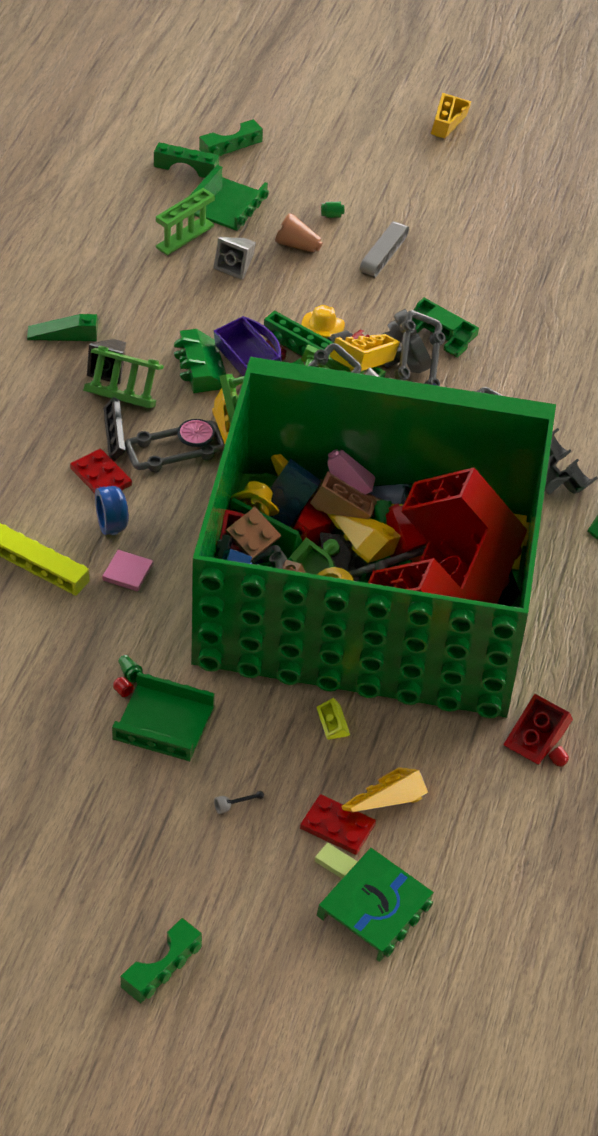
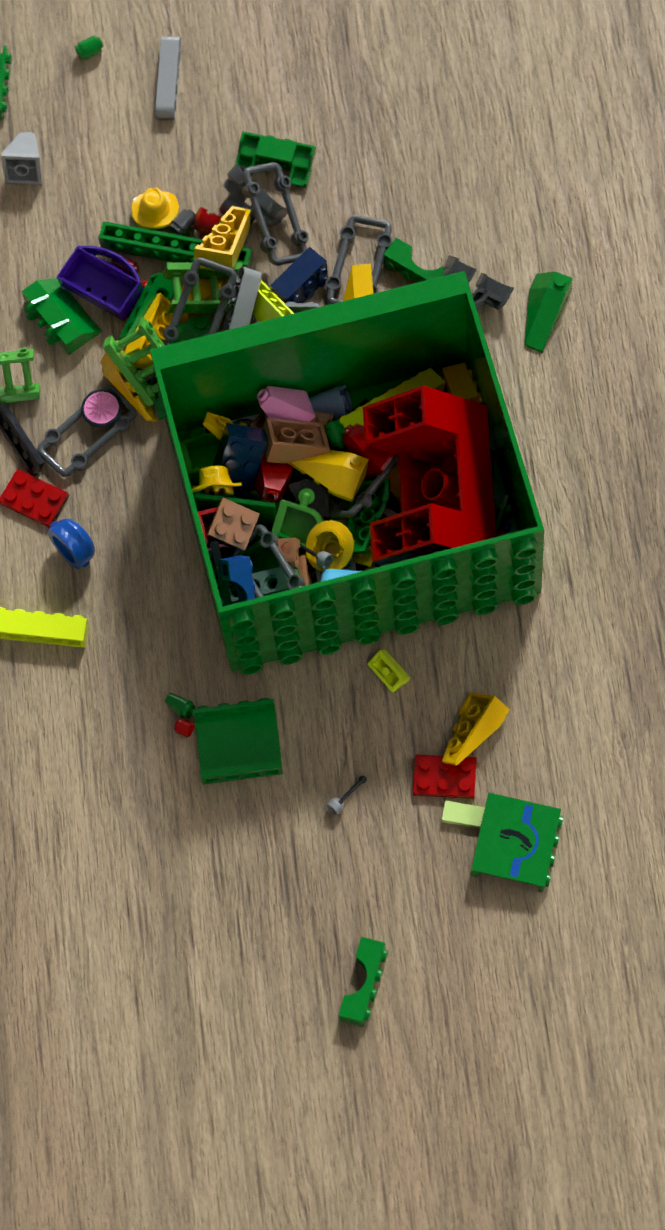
camera: 15 degrees left, 20 degrees up
(127, 570) = (119, 597): bright pink tile -> none
(298, 235) = (73, 103): nougat cone -> none
(538, 729) = (576, 597): red slope -> none
(559, 756) = (605, 613): red piece -> none

